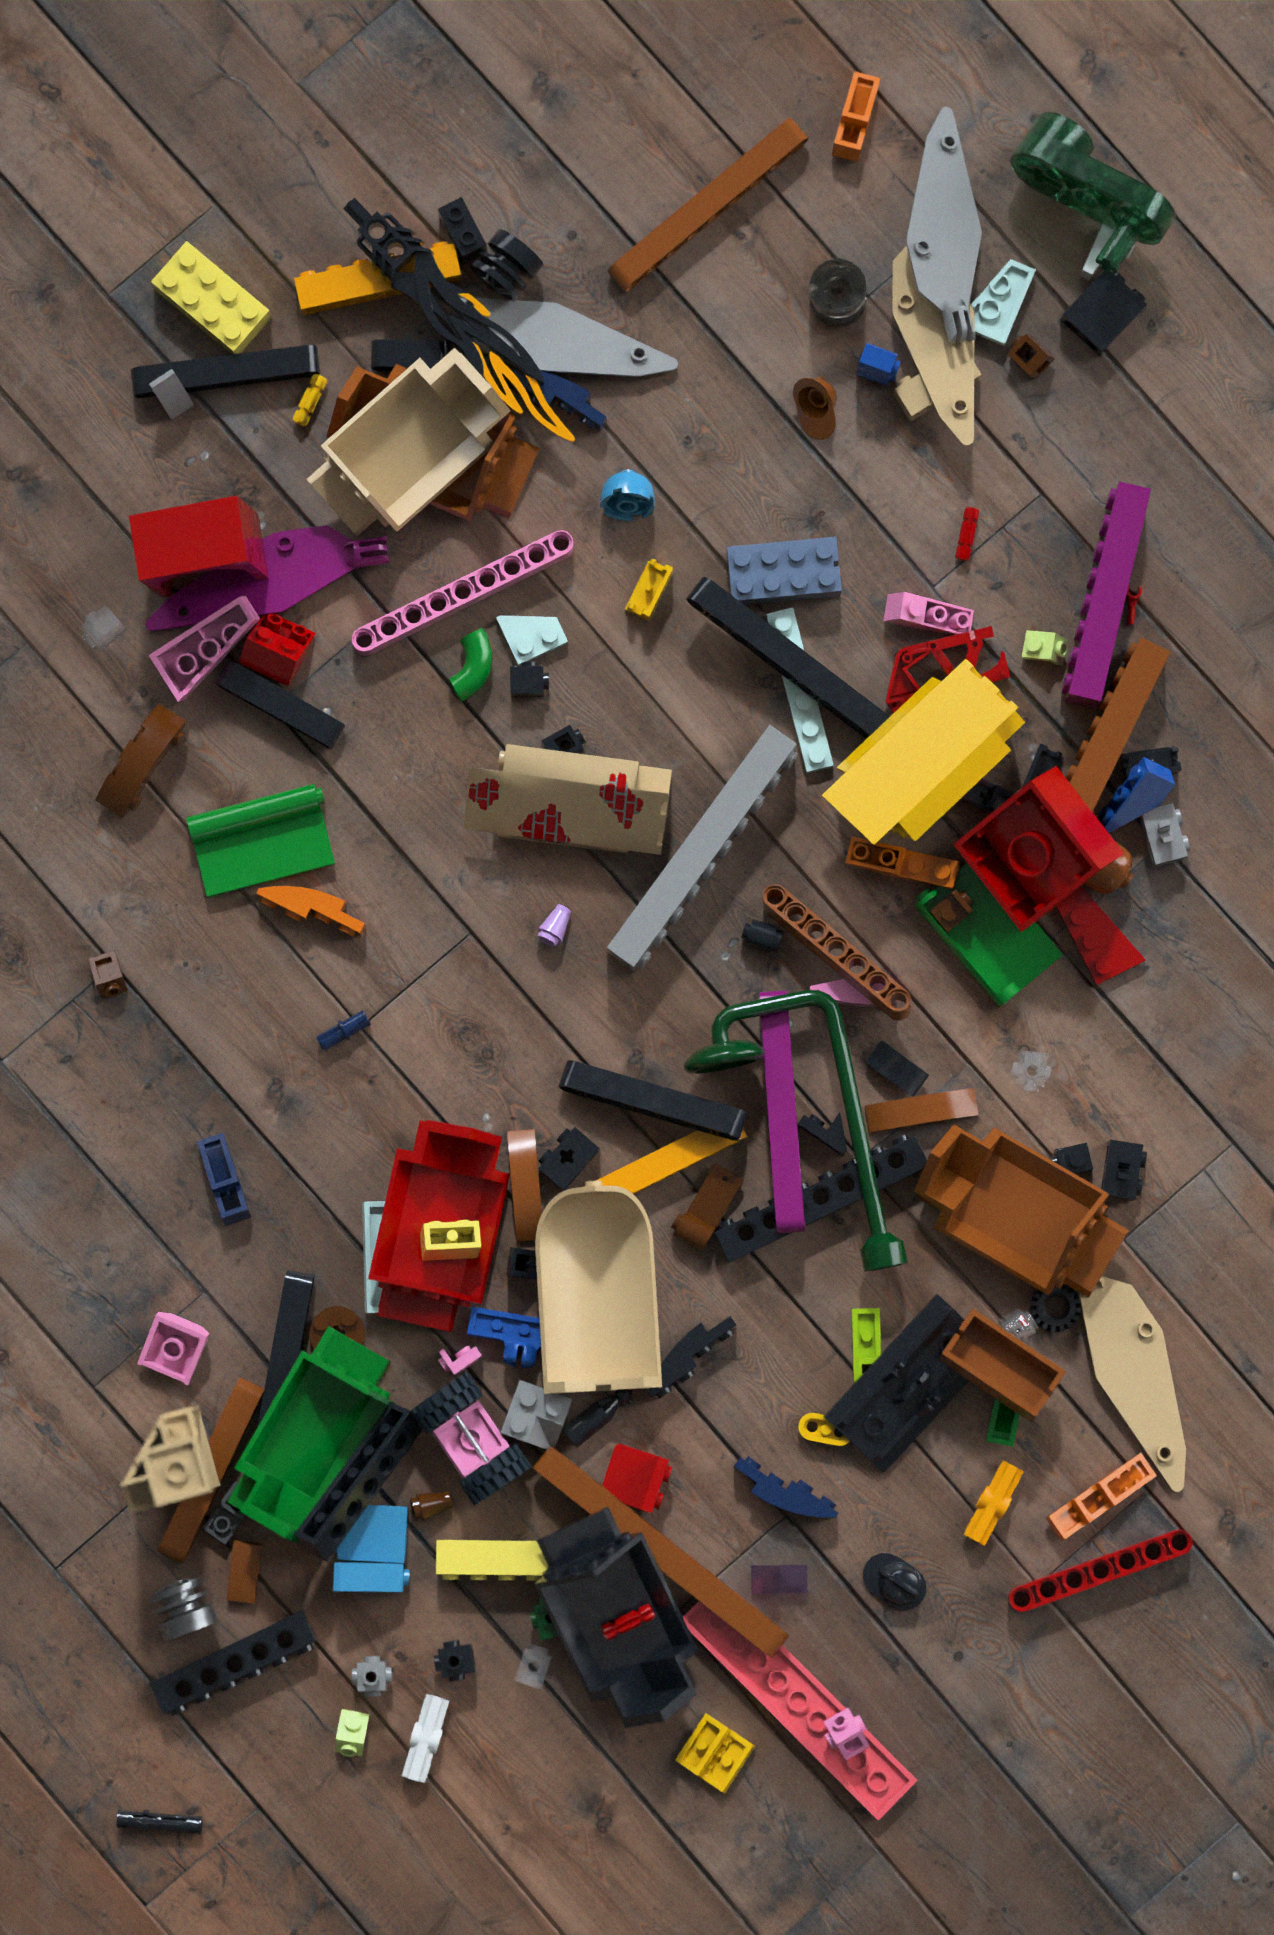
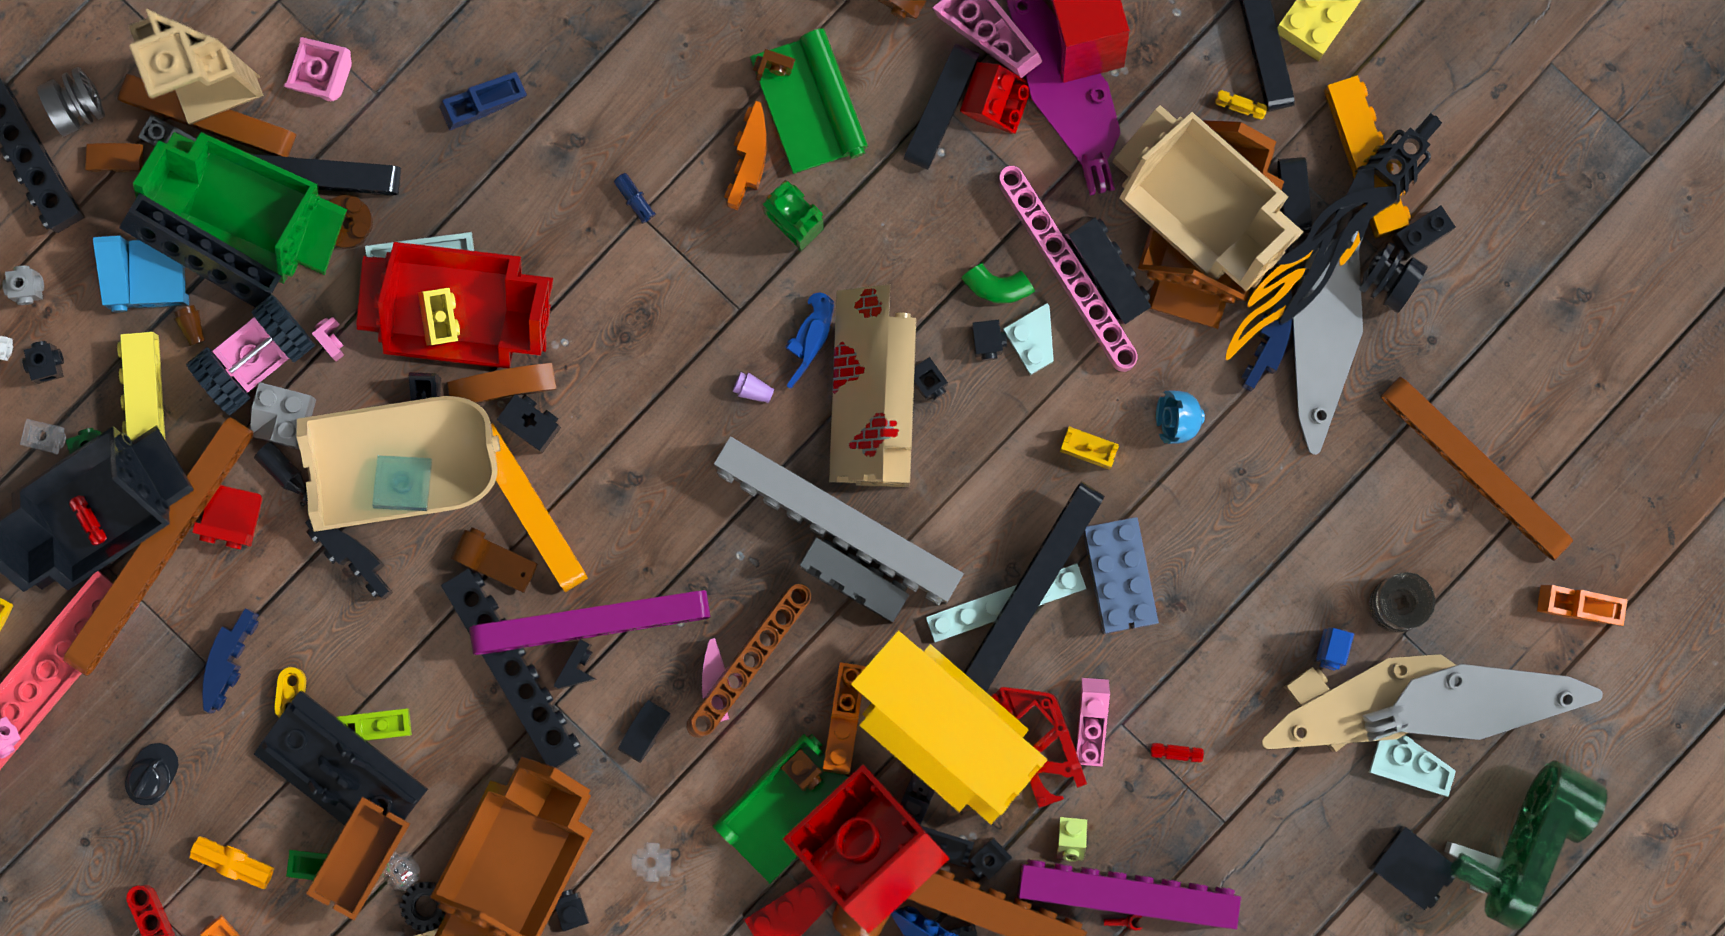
camera: 85 degrees right, 0 degrees up
(218, 868) = (776, 62): none -> reddish brown bracket
(381, 864) = (793, 215): none -> green brick
(466, 552) = (1107, 269): none -> black wedge
(503, 859) = (812, 333): none -> blue animal
(516, 1331) = (360, 387): blue plate -> none
(620, 1291) = (402, 483): none -> clear light blue plate
(653, 1100) = (590, 497): black beam -> none
(762, 936) = (761, 588): black brick -> none
(763, 839) = (855, 580): none -> dark grey wedge
(779, 1579) = (145, 663): clear purple slope -> none
(815, 406) = (1288, 591): dark orange piece -> none
(881, 1248) = (463, 731): dark green piece -> none
(921, 1110) = (606, 759): dark orange slope -> none
(1019, 353) = (1361, 788): reddish brown brick -> none
(1047, 729) = (1000, 856): none -> black brick

